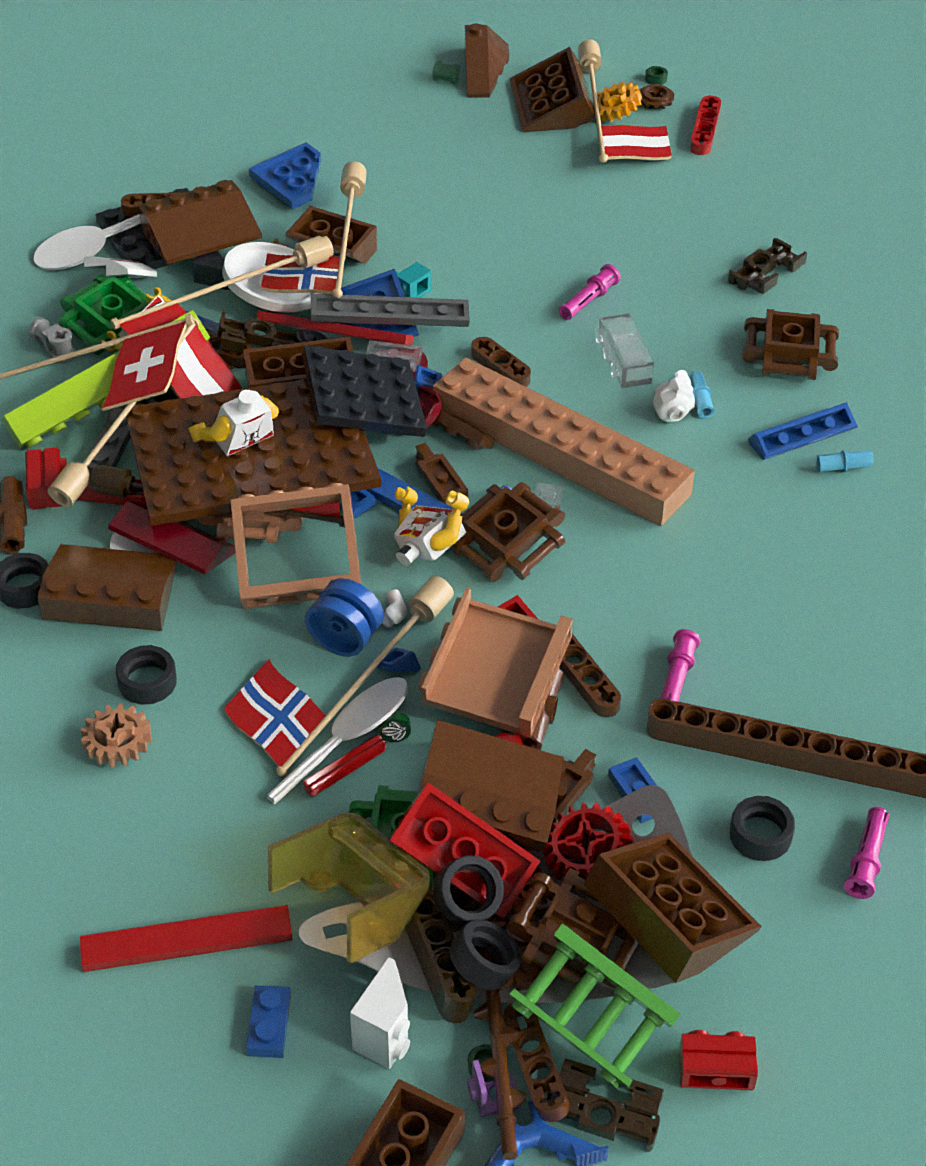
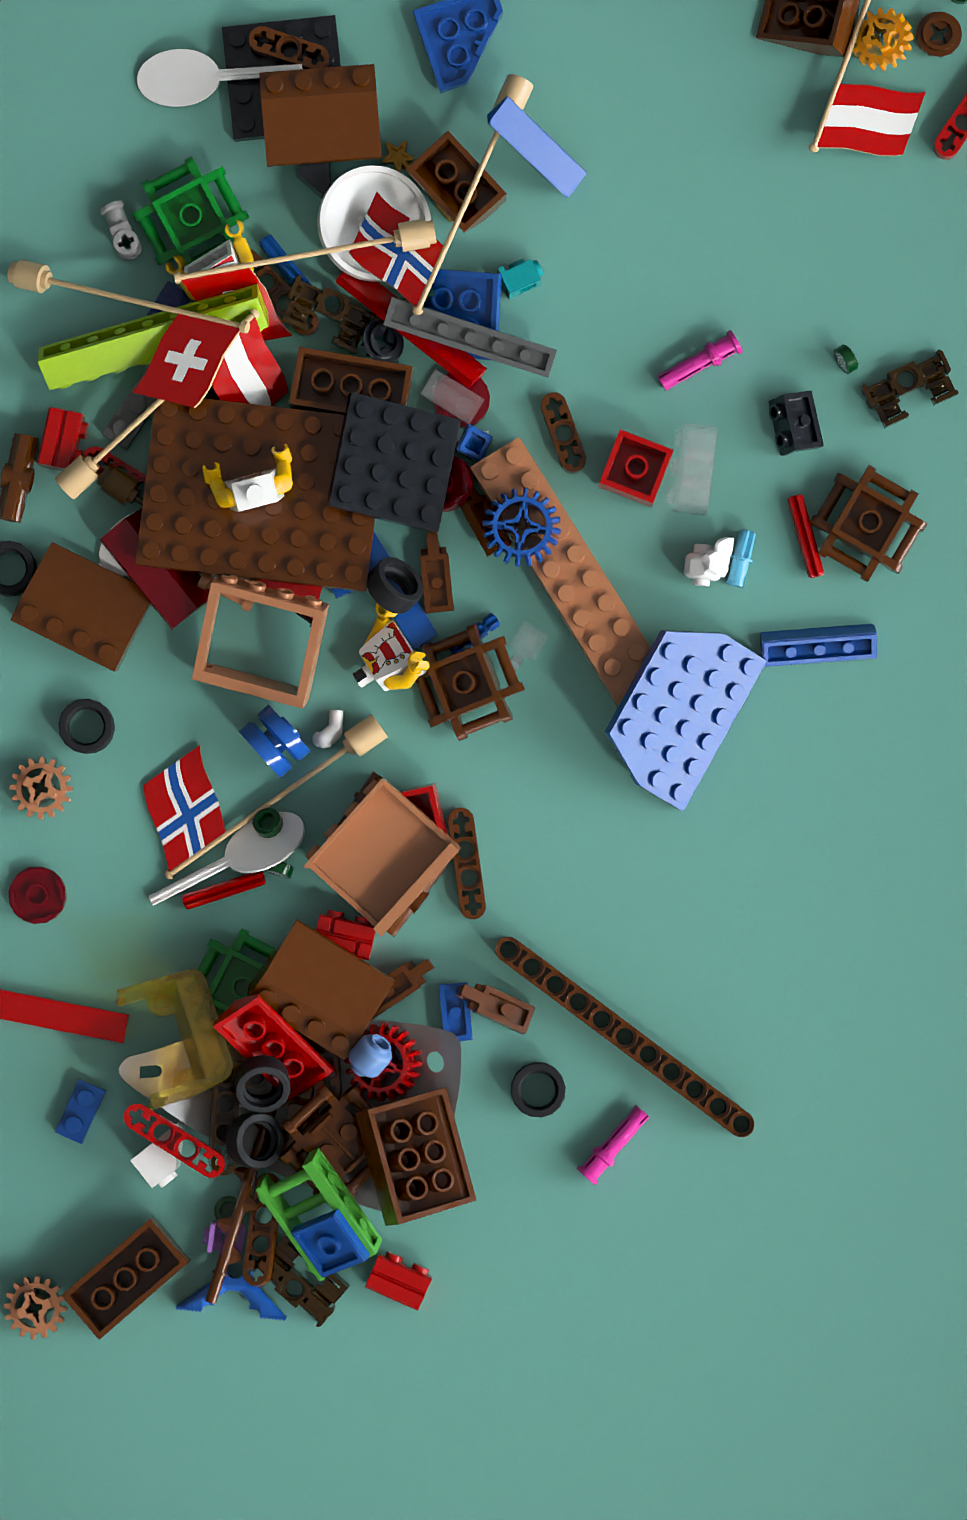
camera: 20 degrees right, 40 degrees up
(120, 267) = (219, 147): white slope -> none
(144, 834) = (37, 895): none -> dark red tile
(366, 691) = (267, 822): none -> dark green tile
(386, 200) = (536, 146): none -> slope
(392, 974) = (177, 1135): none -> red beam
(400, 661) = (311, 793): blue slope -> none
(405, 472) = (401, 574): none -> black tyre
(500, 396) = (507, 526): none -> blue gear
(573, 824) = (370, 1055): none -> medium blue head
(576, 357) = (635, 468): none -> red brick
(622, 1024) = (330, 1243): none -> blue tile
(677, 765) = (497, 1006): none -> reddish brown hinge
(679, 661) = (556, 890): dark pink pin -> none
(688, 306) = (795, 422): none -> black bracket
(705, 261) = (845, 359): none -> dark green tile
(715, 490) = (681, 710): none -> plate
(745, 368) = (805, 536): none -> red axle
(844, 460) = (835, 704): medium azure axle -> none

